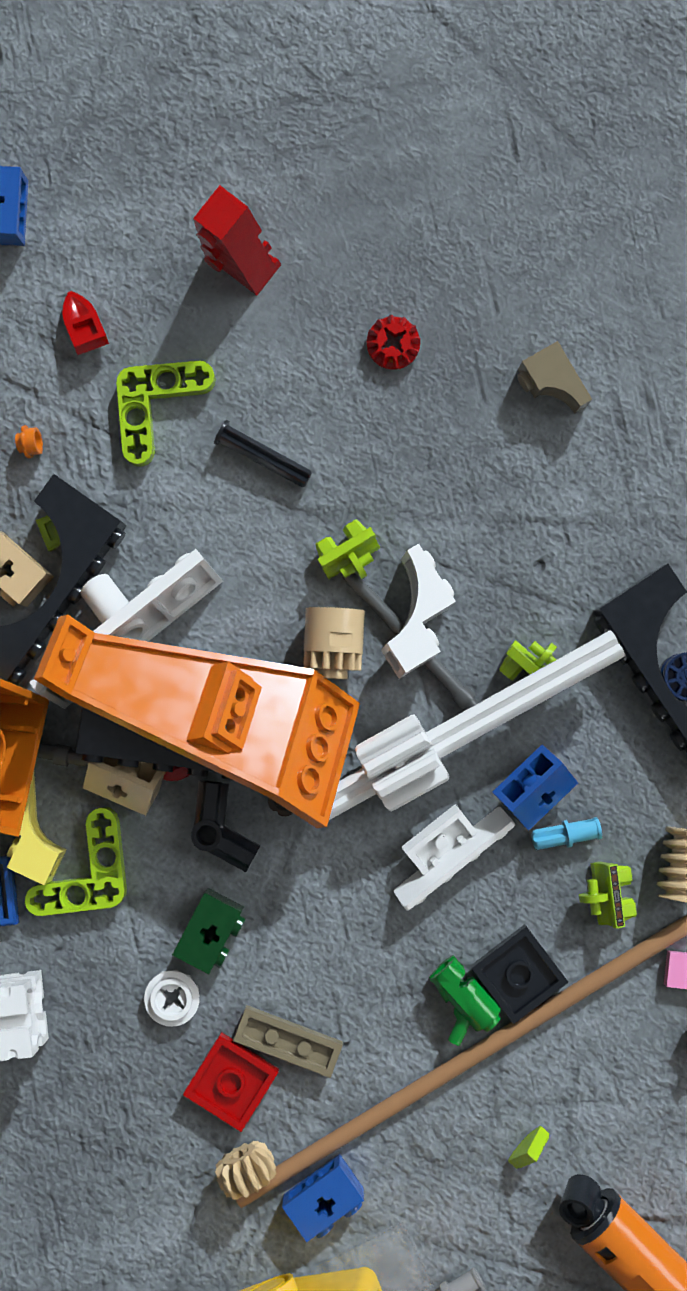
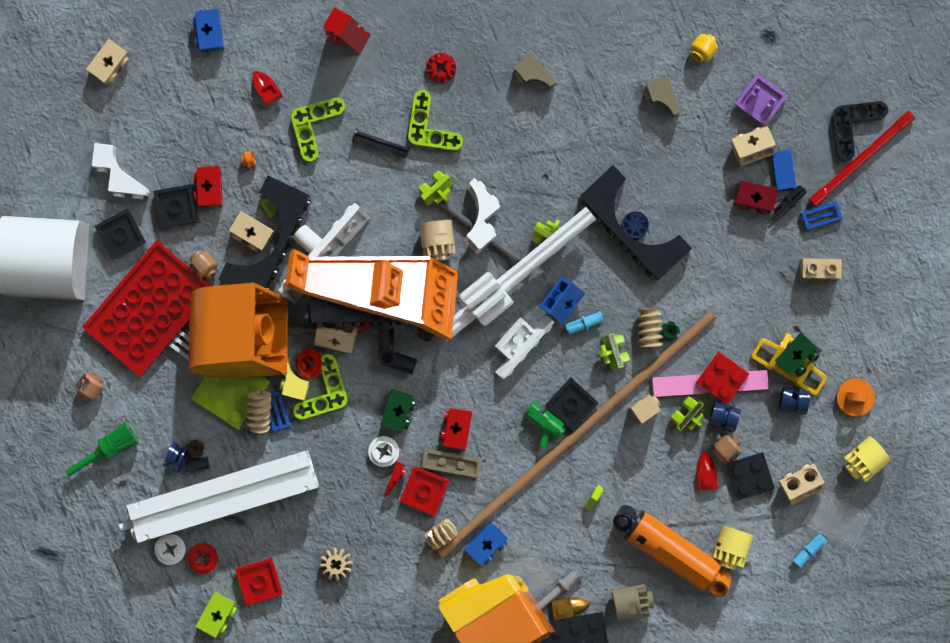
camera: 10 degrees left, 0 degrees up
(46, 1197) = (336, 571): none -> tan gear
(58, 820) = (303, 366): none -> red gear
(189, 1044) = (398, 473): none -> red plate
(308, 1002) = (460, 439): none -> red brick
(349, 451) = (427, 133): none -> lime beam
(652, 1011) = (645, 408): none -> tan brick

